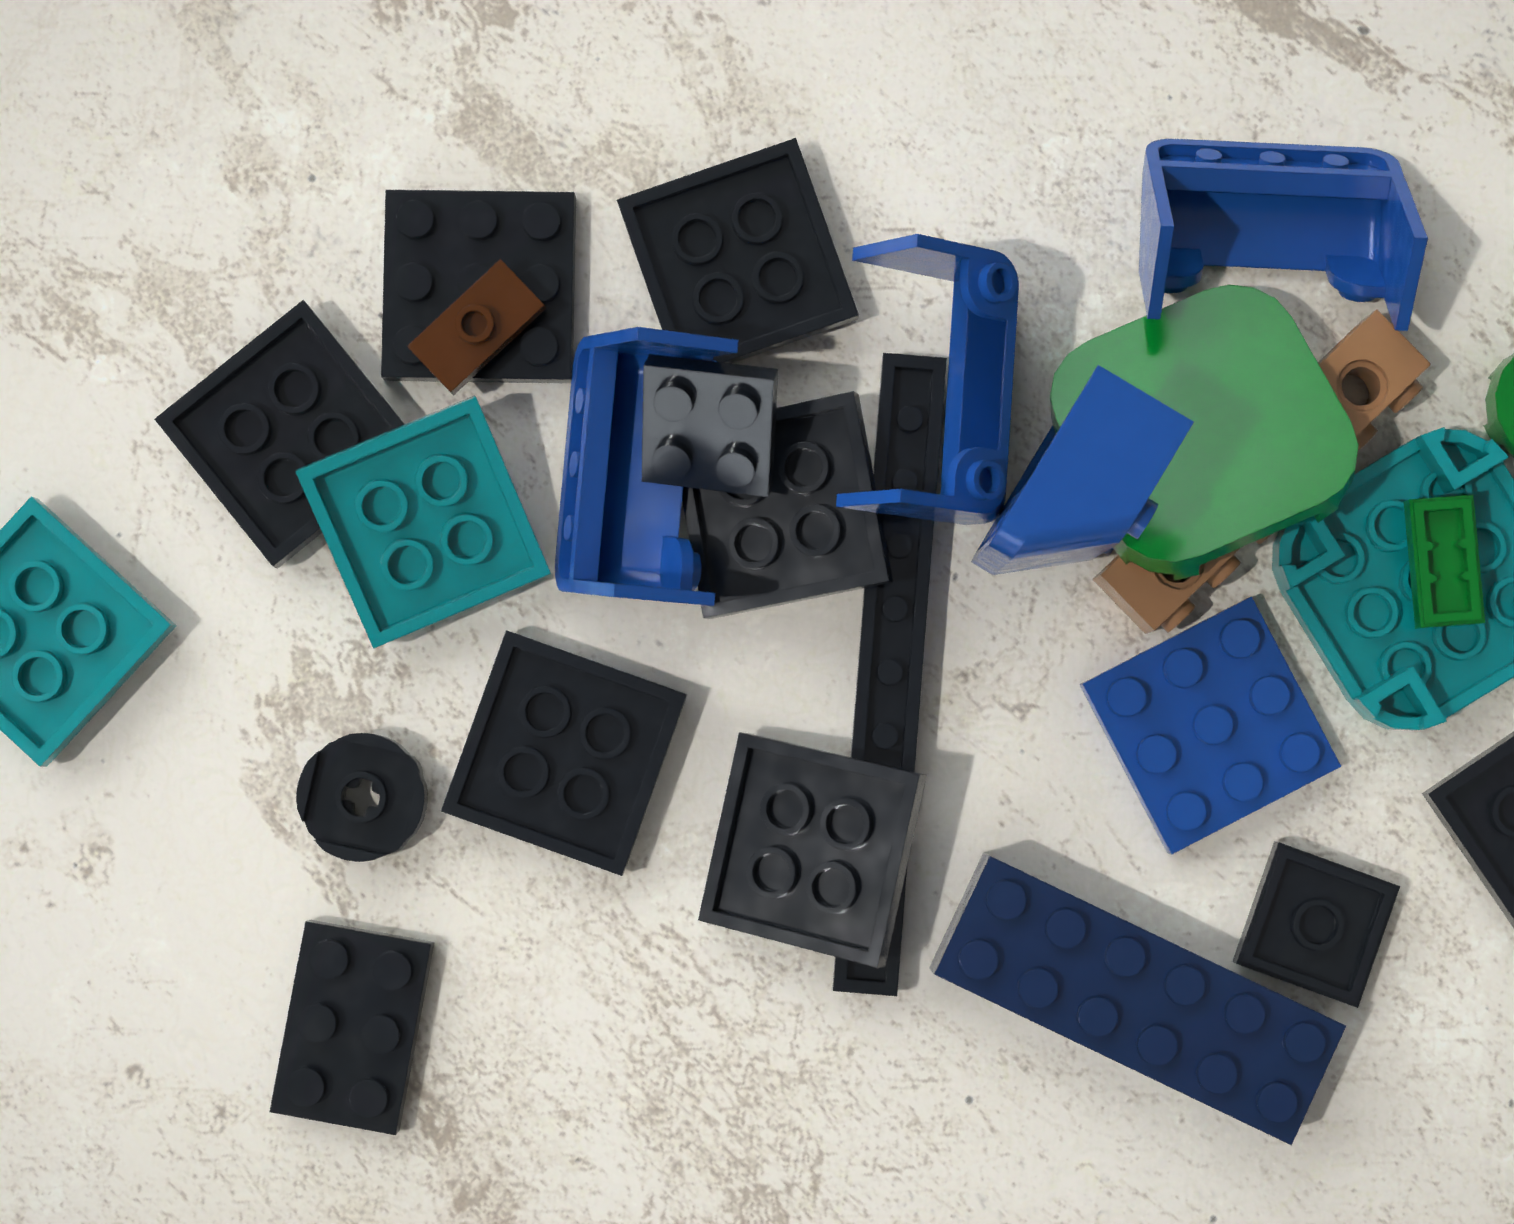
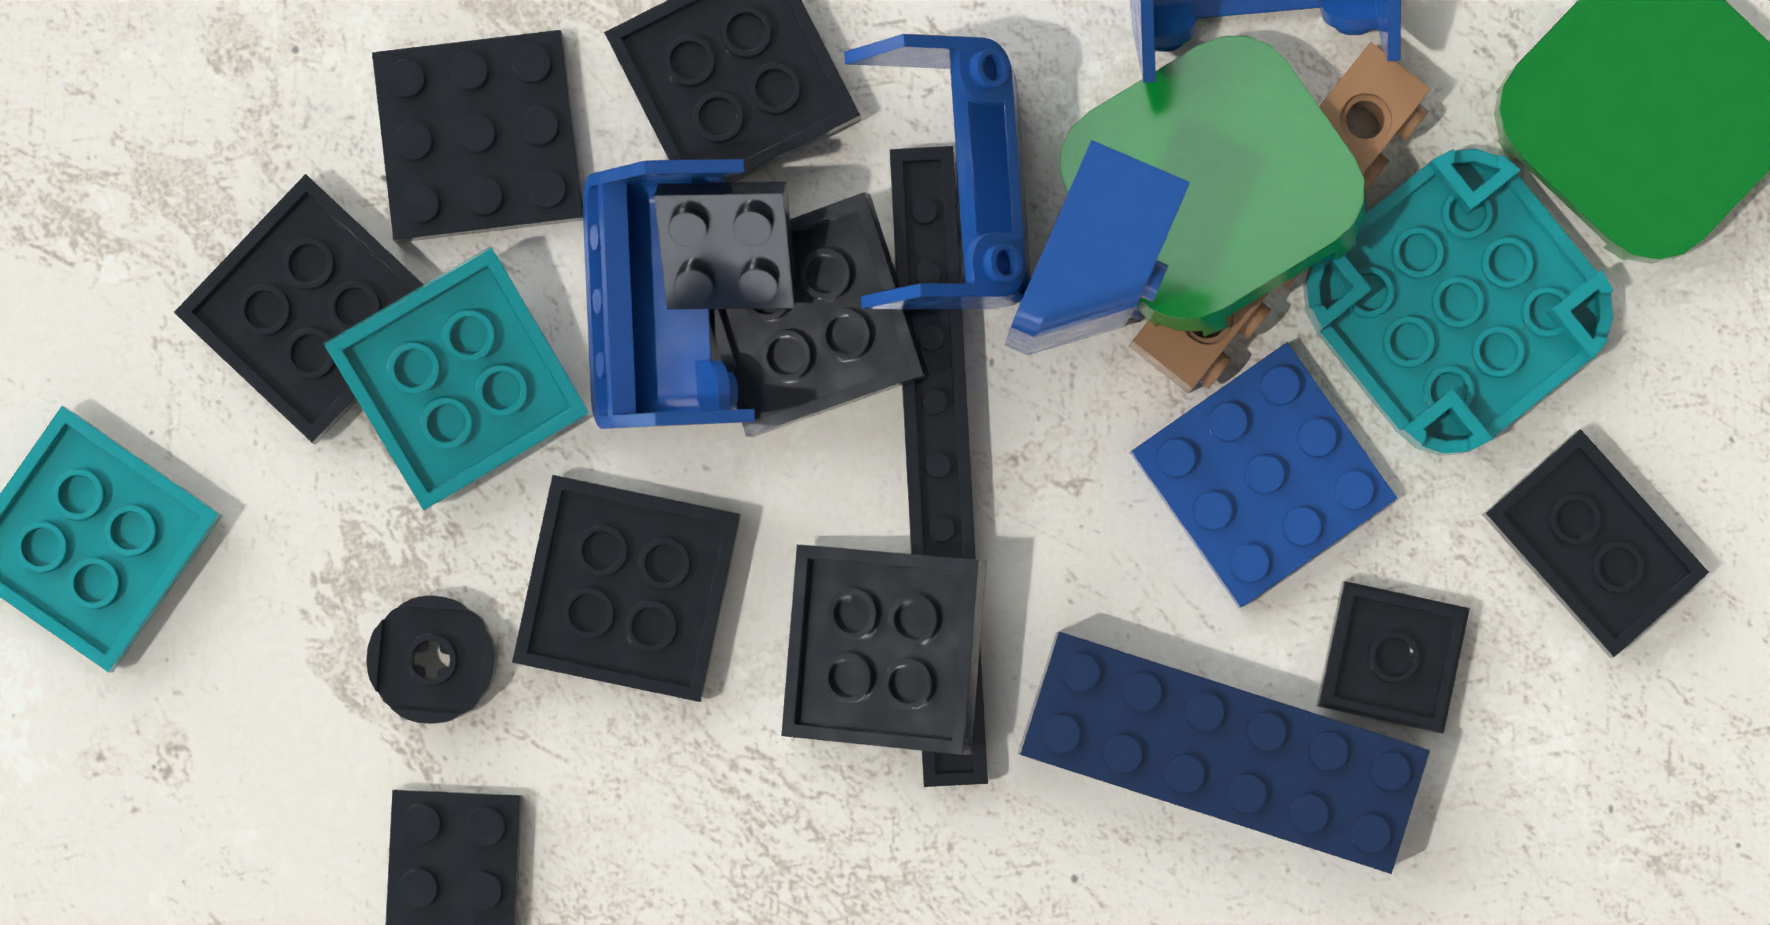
camera: 10 degrees left, 0 degrees up
(476, 327) = (482, 178): reddish brown plate -> none
(1444, 561) = (1470, 282): green plate -> none

